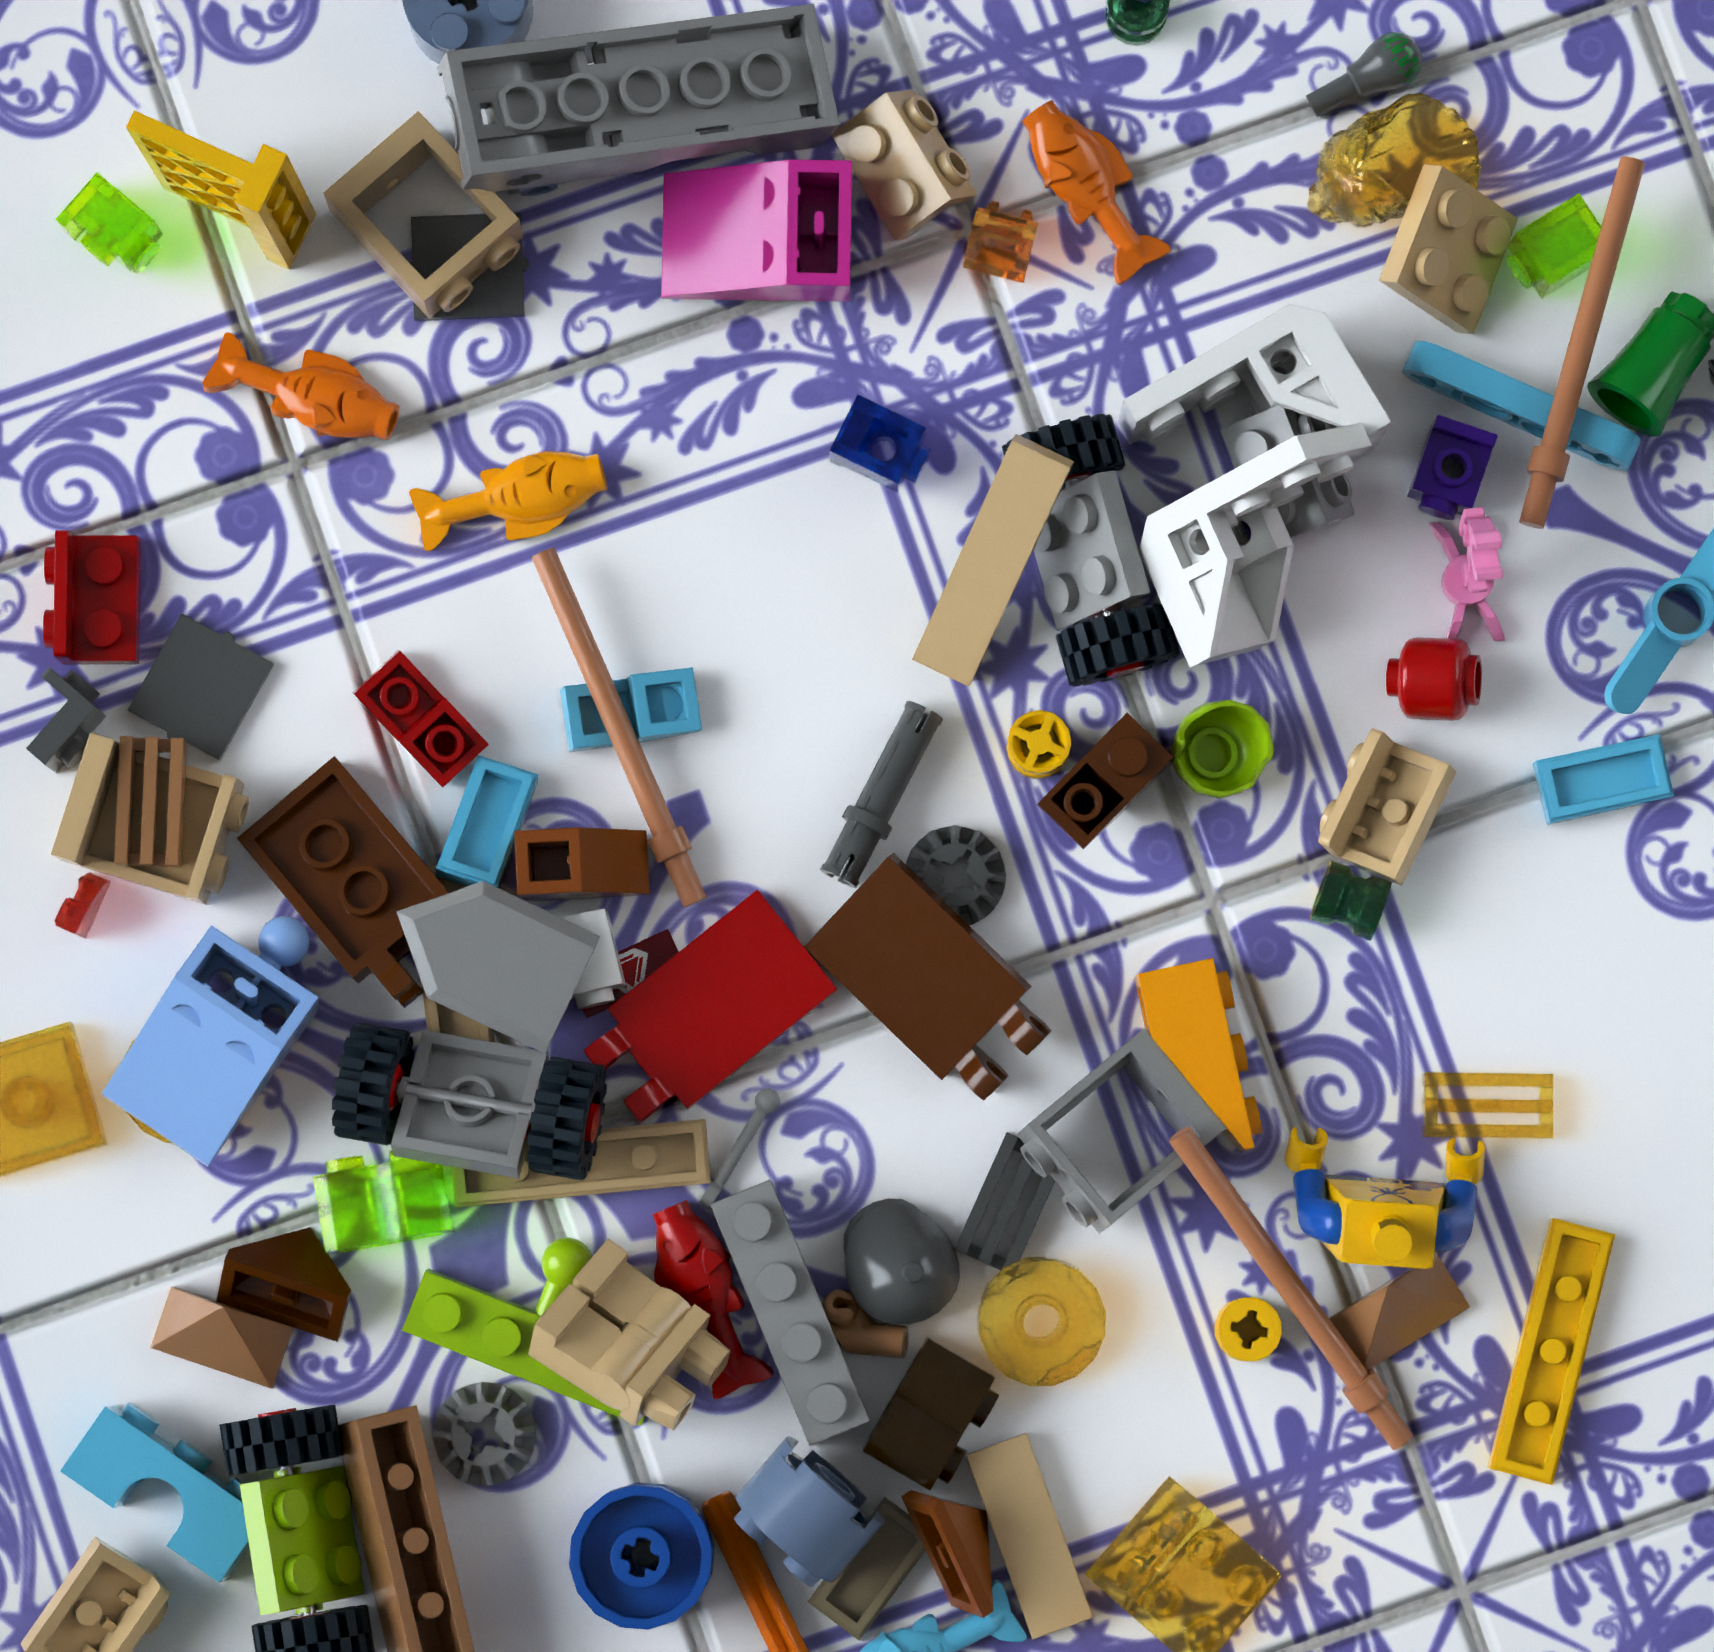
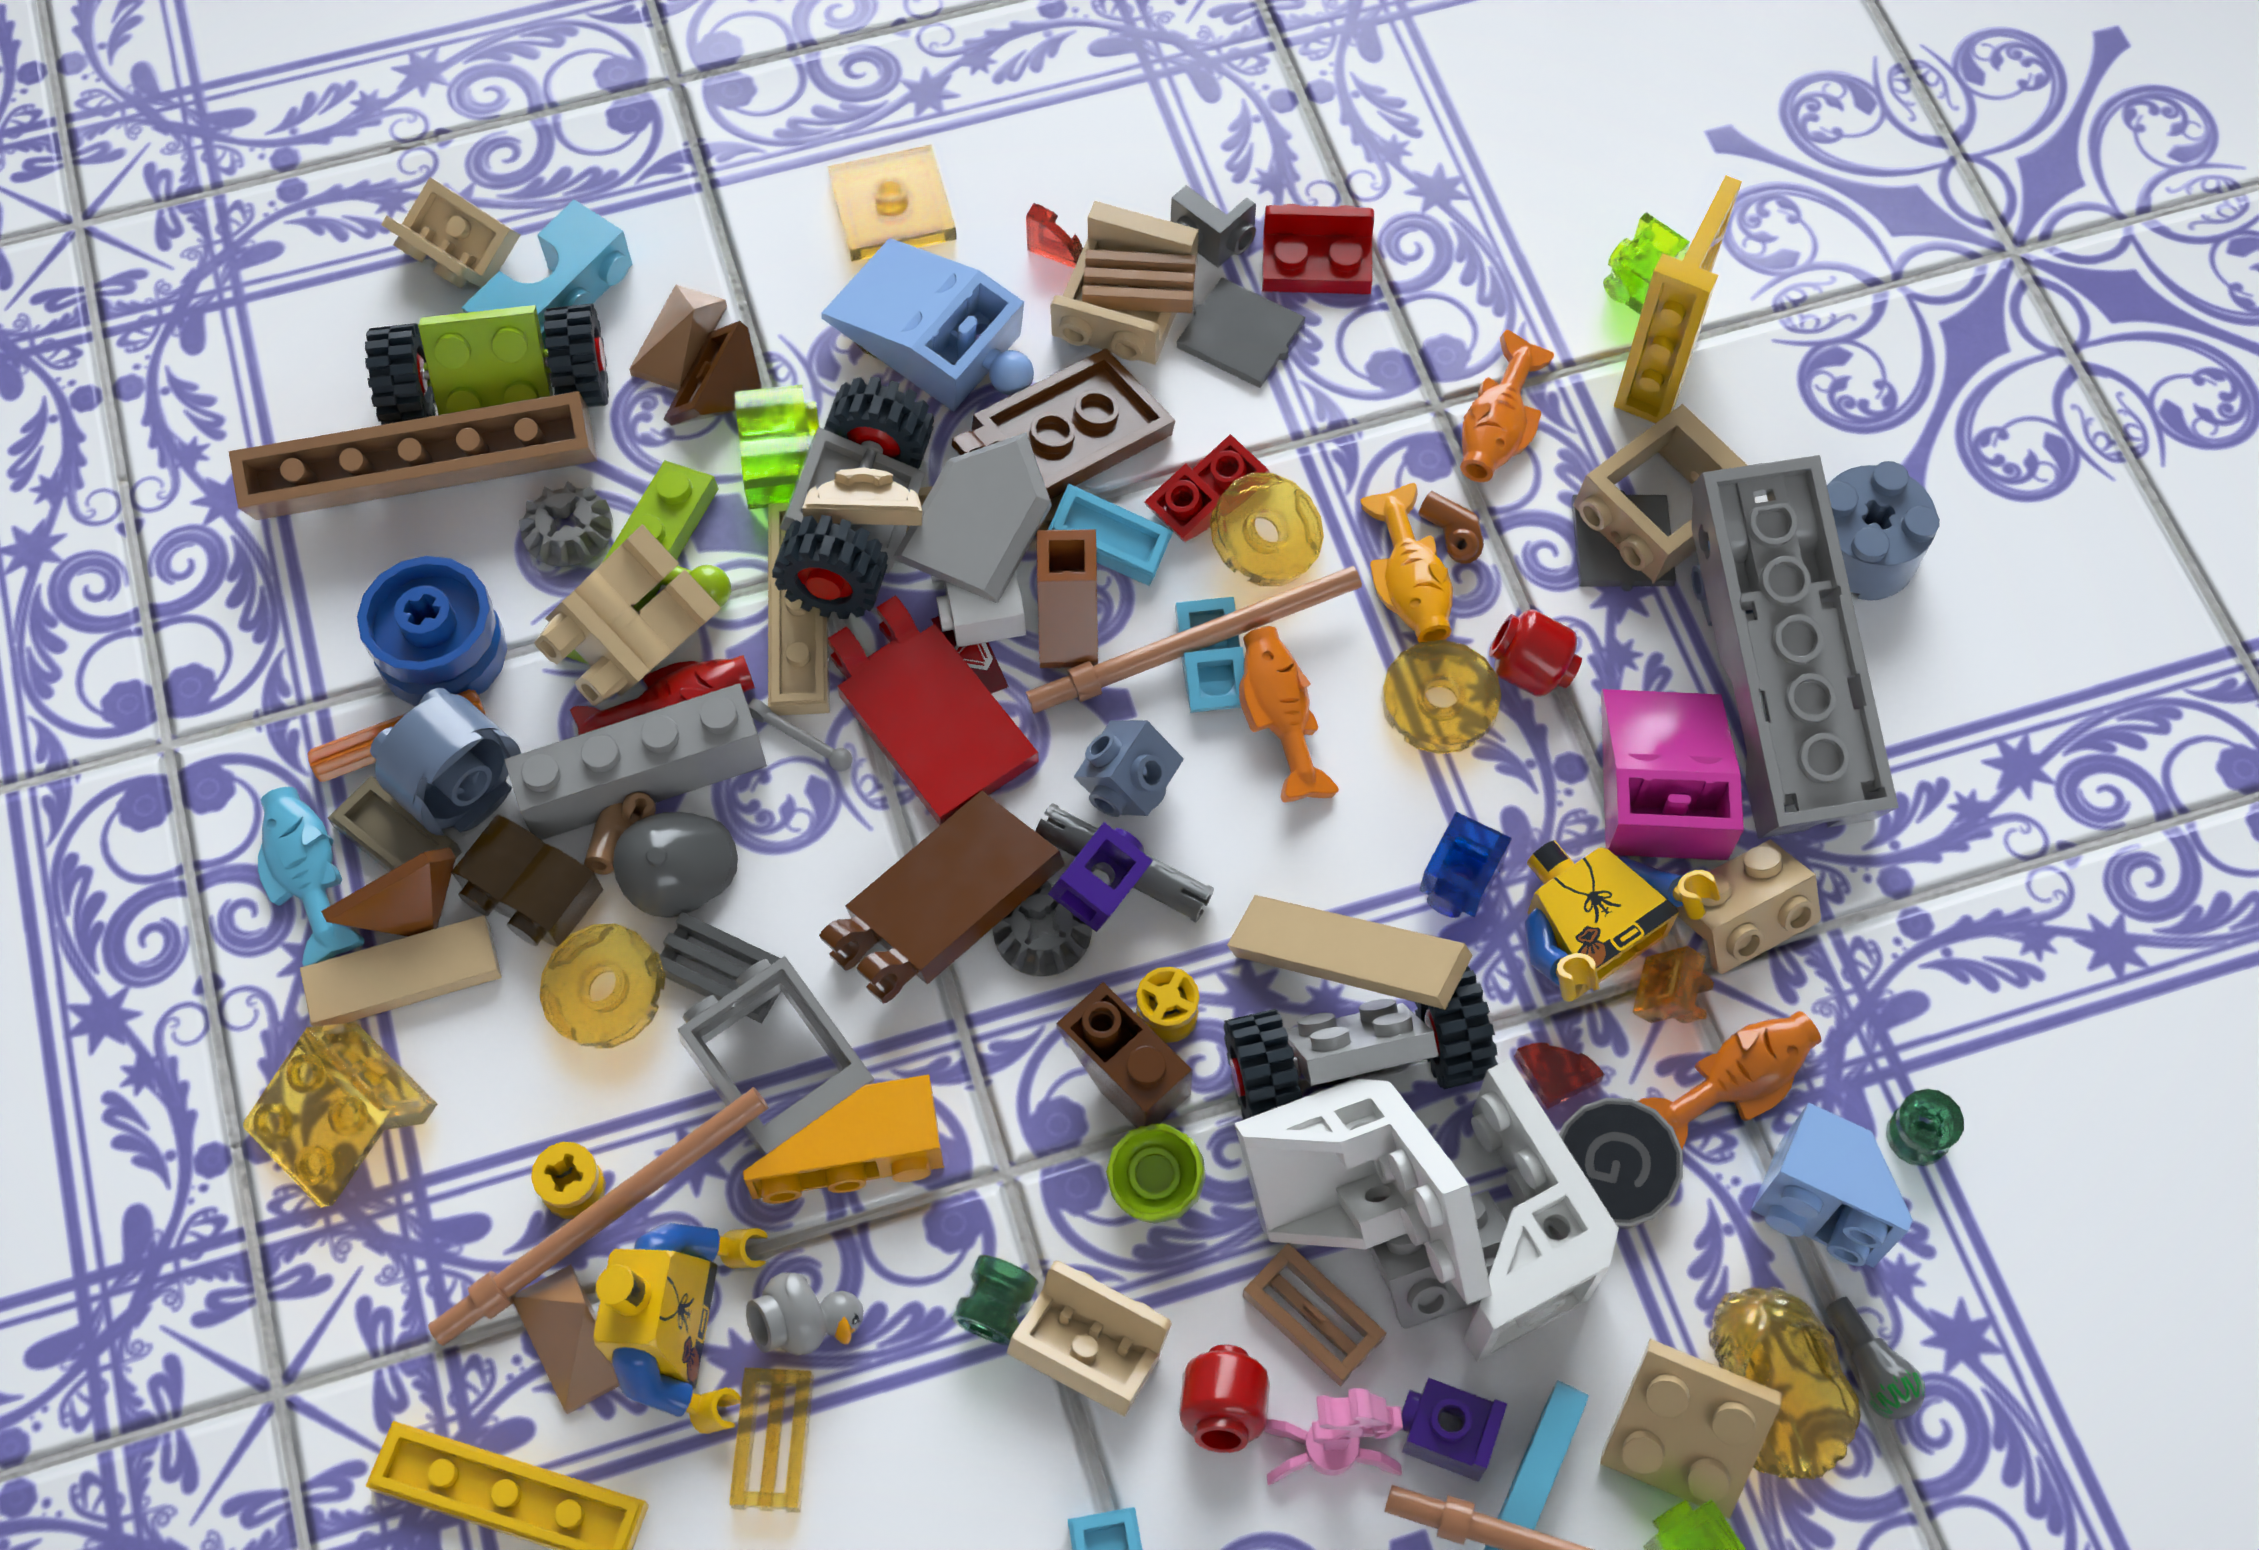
camera: 90 degrees right, 20 degrees down
(463, 442) = (1460, 527): none -> dark orange arm
(487, 619) = (1287, 509): none -> clear yellow tile
(488, 1085) = (864, 498): none -> tan tile
(625, 365) = (1535, 653): none -> red head
(666, 429) = (1445, 666): none -> clear yellow tile
(692, 637) = (1277, 698): none -> orange animal
(784, 791) = (1128, 768): none -> sand blue brick
(930, 310) = (1603, 913): none -> torso
(936, 799) = (1088, 896): none -> dark purple brick
(1088, 359) = (1557, 1071): none -> clear red tile
(1184, 302) = (1626, 1157): none -> black tile
(1210, 103) = (1834, 1189): none -> light blue slope
(1308, 637) = (1295, 1332): none -> medium nougat tile
(1380, 1088) = (795, 1321): none -> light grey animal

